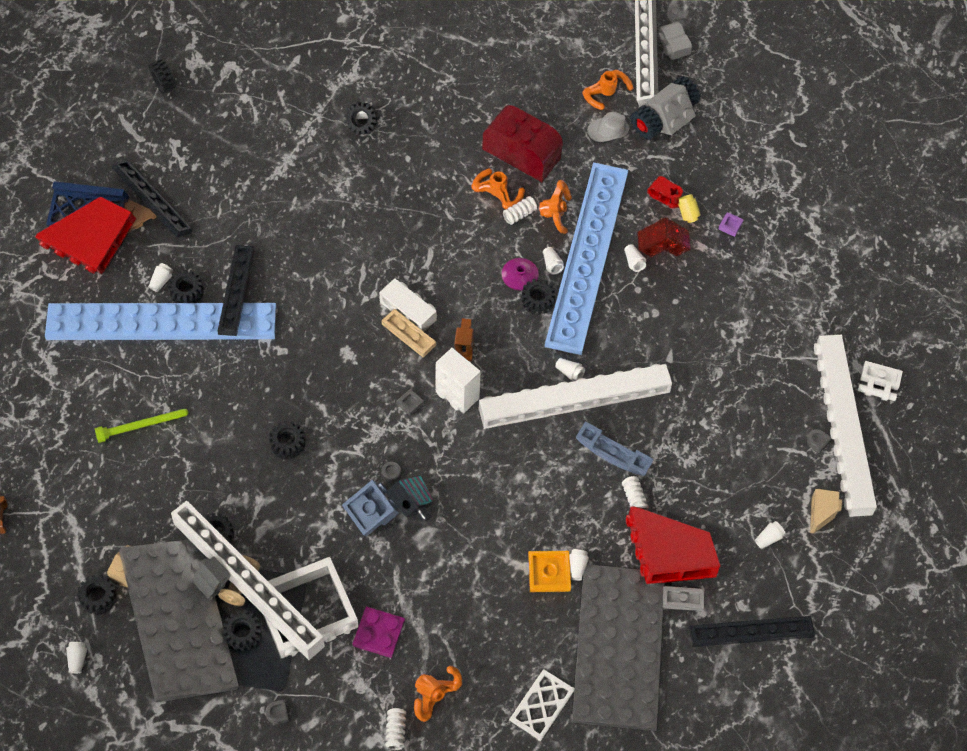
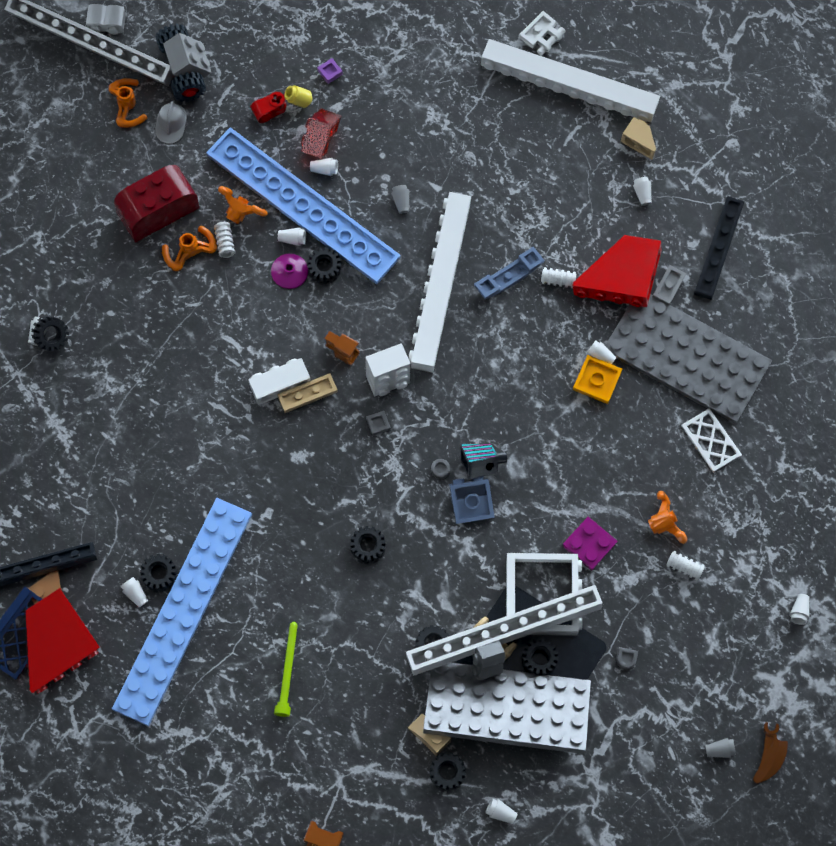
camera: 65 degrees left, 10 degrees up
(236, 290) = (186, 527): black tile -> none
(571, 369) = (411, 273): white cone -> none
(639, 331) = (401, 198): none -> light grey cone
(817, 440) = (572, 110): flat silver tile -> none

